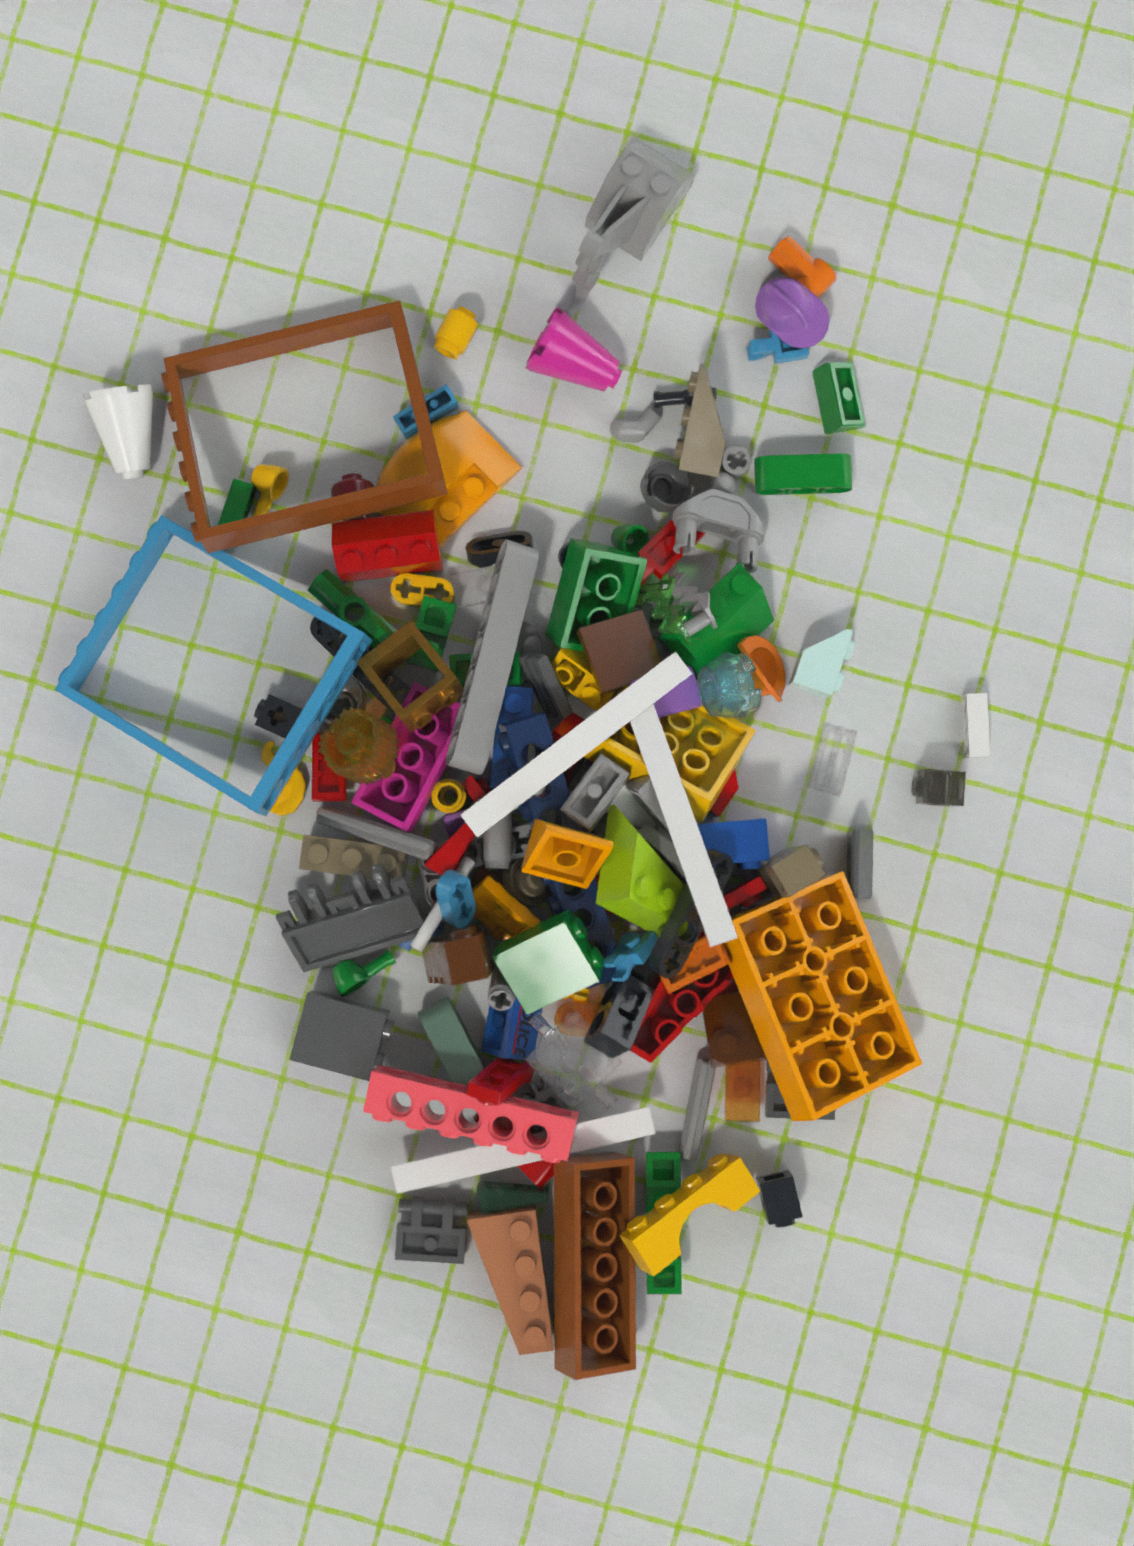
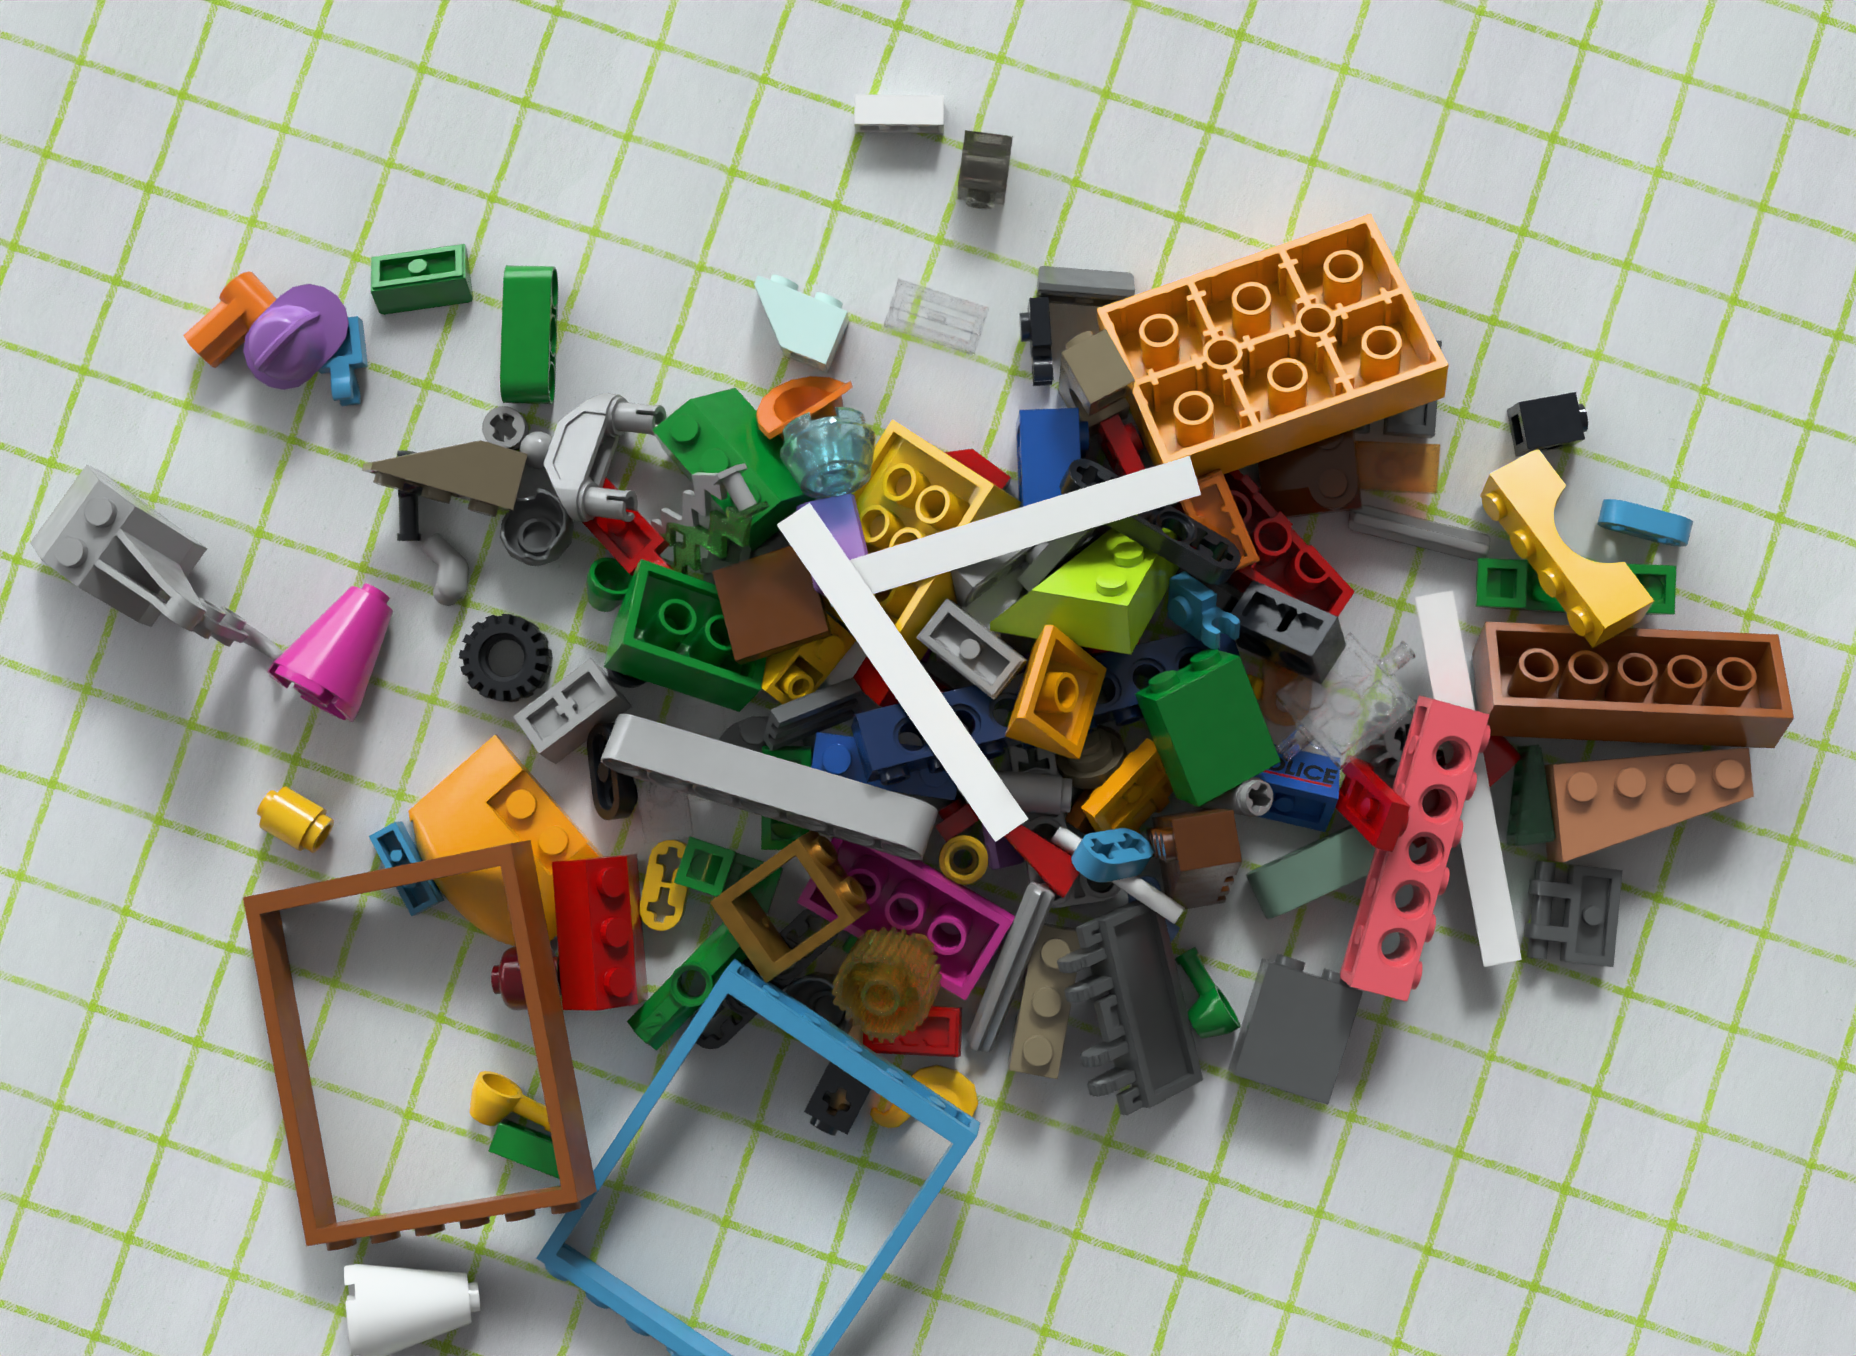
camera: 80 degrees left, 0 degrees up
(539, 516) = (569, 710): none -> light grey hinge
(580, 451) = (477, 651): none -> black tyre
(712, 1271) = (1645, 522): none -> dark azure beam
(826, 830) = (1037, 329): none -> black plate

